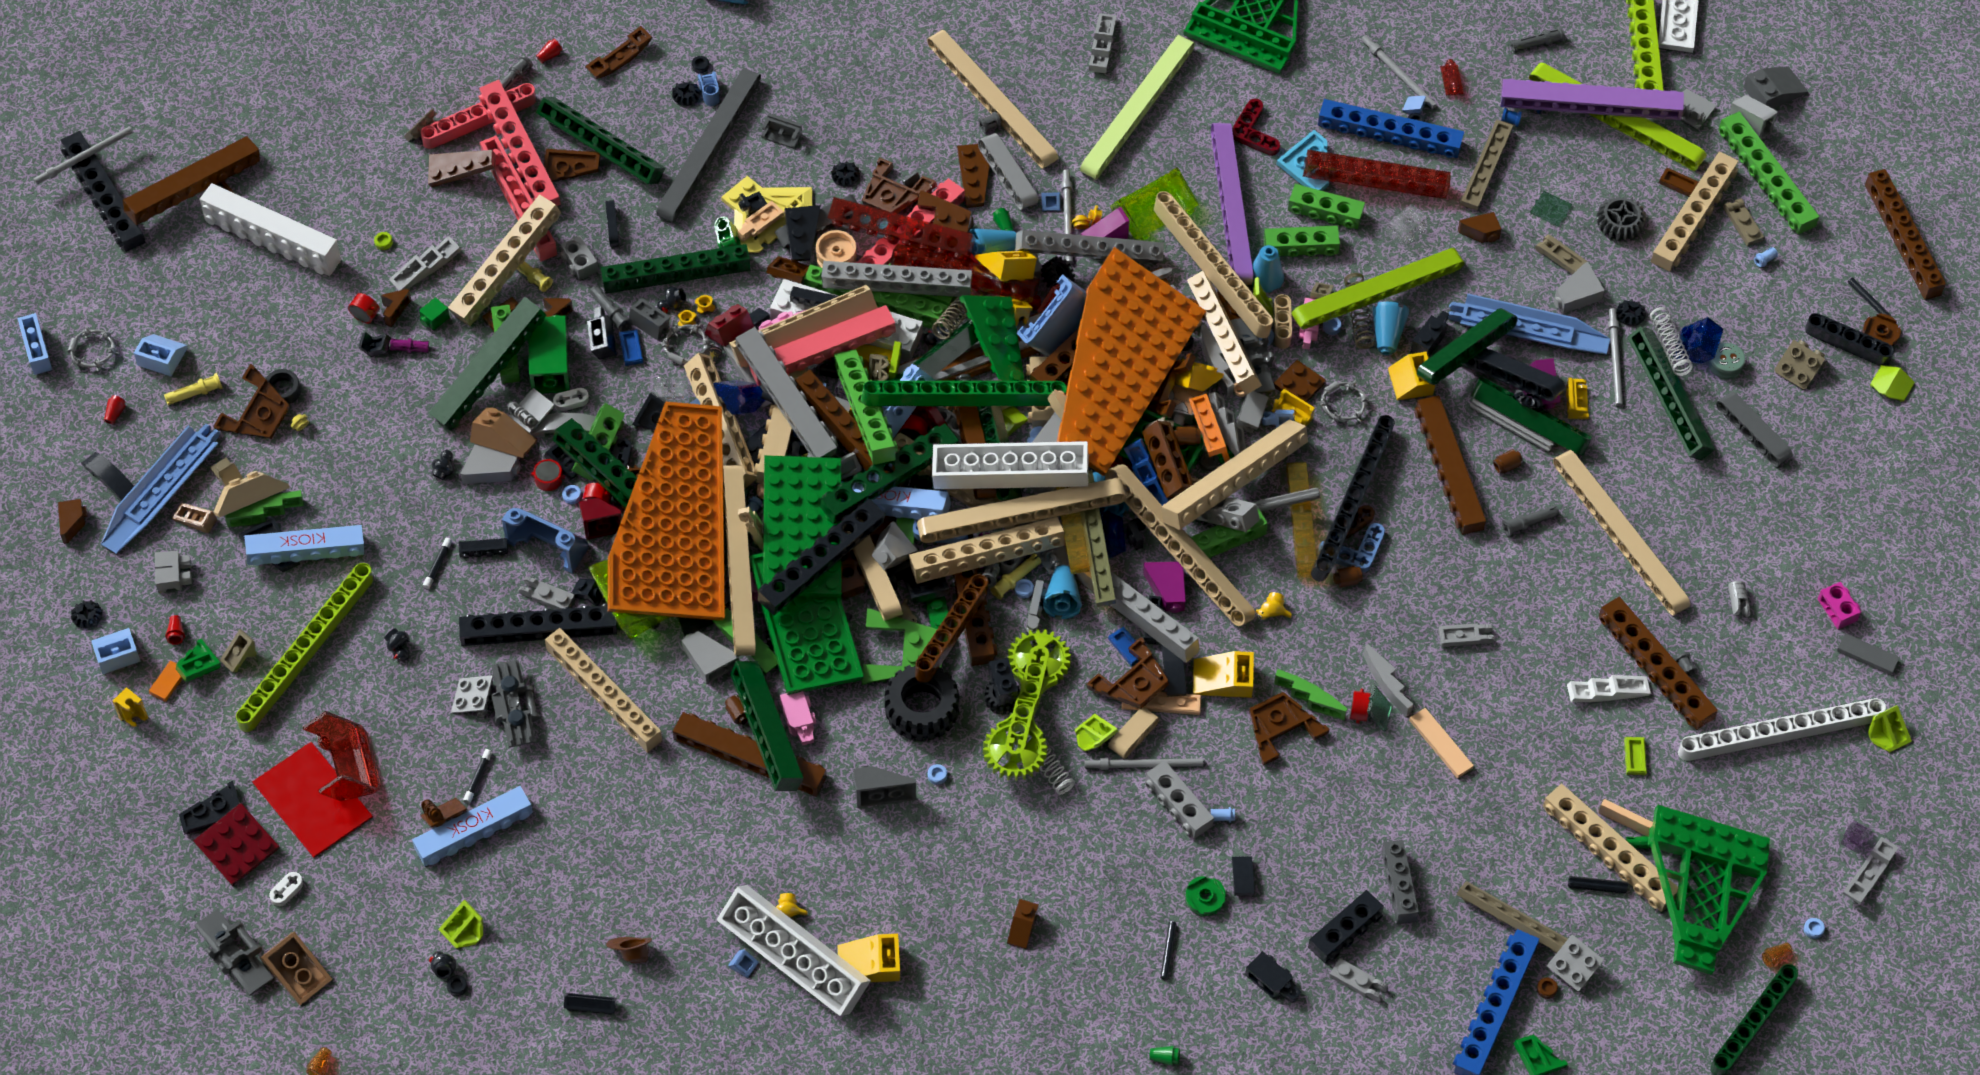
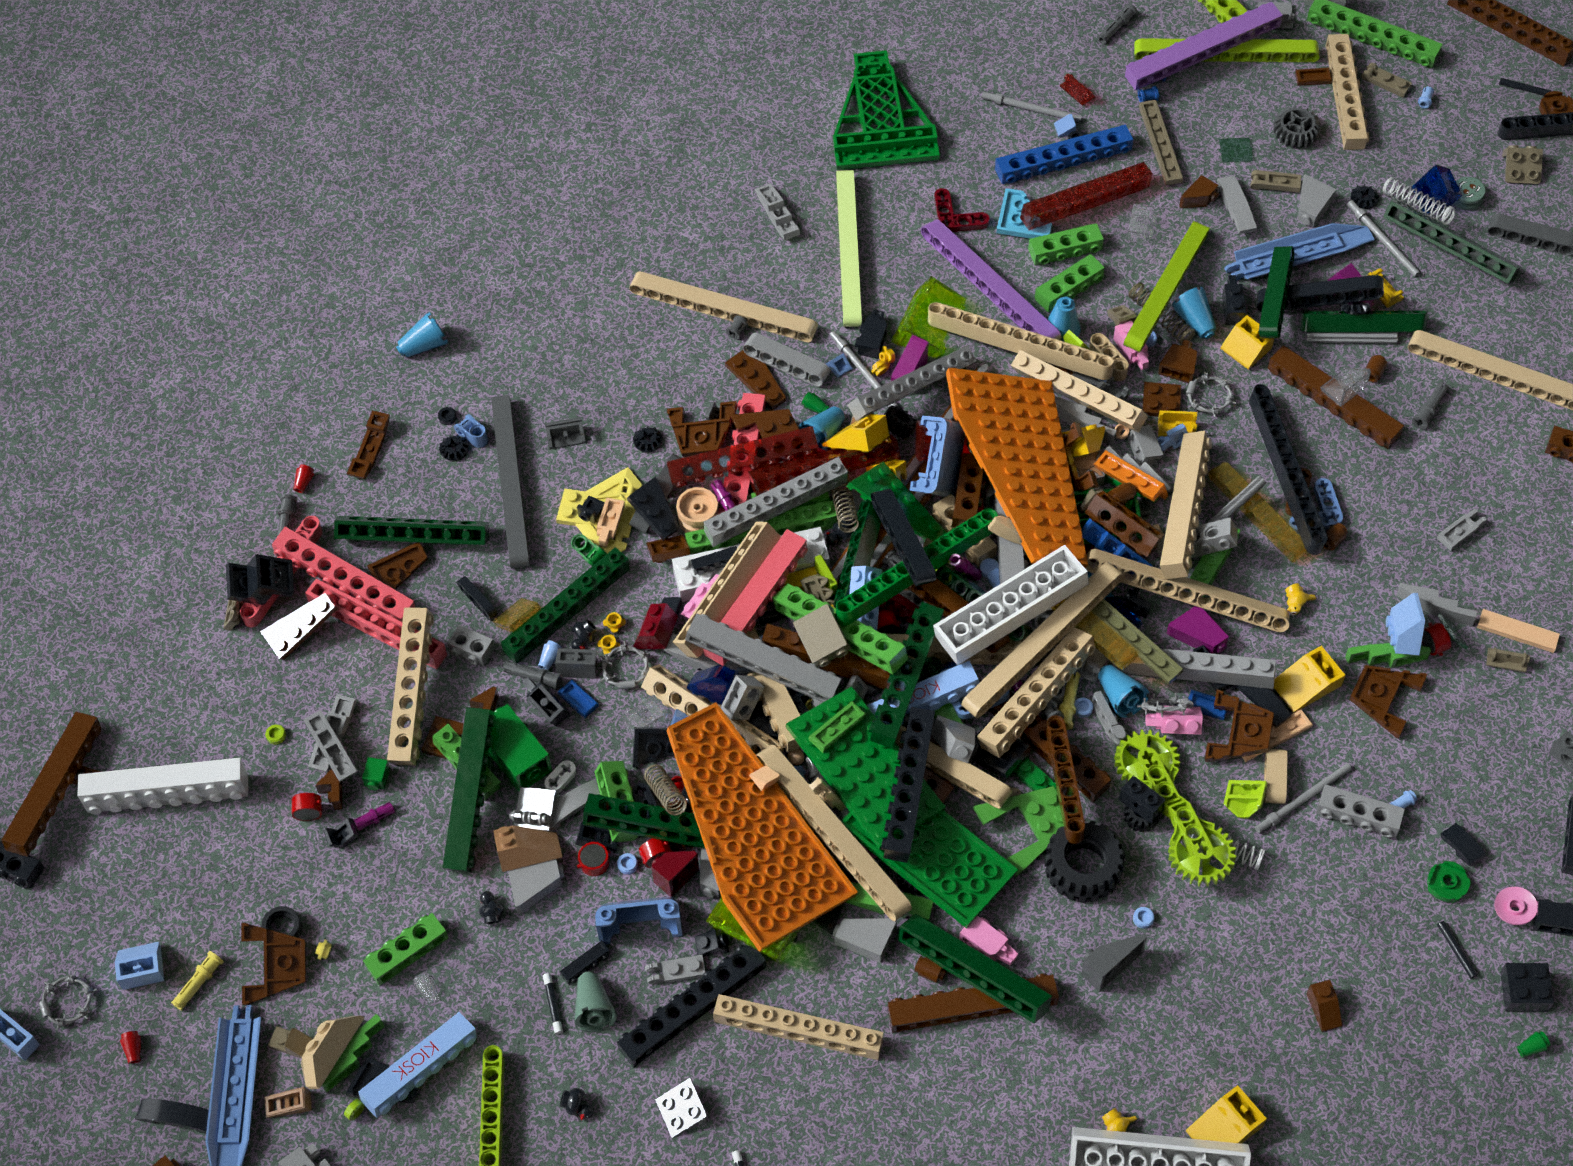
camera: 30 degrees left, 0 degrees up
(236, 550) = (354, 1109): none -> lime tile
(353, 494) = (426, 987): none -> clear cone
(366, 463) = (402, 959): none -> bright green brick
(412, 271) = (330, 746): none -> light grey slope
(450, 111) = (259, 579): none -> black bracket
(463, 580) = (592, 1005): none -> sand green cone
(507, 705) = (723, 1097): dark grey piece -> none
(535, 276) = (443, 685): light yellow pin -> none
(631, 253) = (516, 614): none -> clear yellow tile
(632, 298) = (548, 654): none -> light blue cone
(635, 452) = (665, 789): none -> dark tan piece
(712, 351) = (654, 660): dark grey tile -> none
(714, 486) = (765, 777): none -> light nougat slope
(750, 417) = (742, 697): none -> light grey brick
(801, 480) = (837, 727): none -> bright green tile
(840, 402) = (822, 636): none -> panel
(862, 253) = (723, 496): none -> magenta pin
(966, 362) = (903, 537): none -> black beam
(1008, 416) = (964, 566): none -> magenta pin
(1088, 641) = (1177, 723): none -> bright pink hinge
(1097, 191) = (872, 335): none -> black hinge
(1105, 631) = (1150, 704): none -> light grey piece
(1196, 1009) = (1526, 987): none -> black brick
(1240, 939) = (1518, 898): none -> bright pink dish
(1337, 680) = (1406, 625): none -> light blue slope
(1340, 360) = (1179, 362): none -> reddish brown torso
(1410, 759) = (1507, 659): none -> dark tan hinge
(1461, 459) = (1346, 384): none -> clear slope
(1506, 255) = (1236, 204): none -> light grey slope

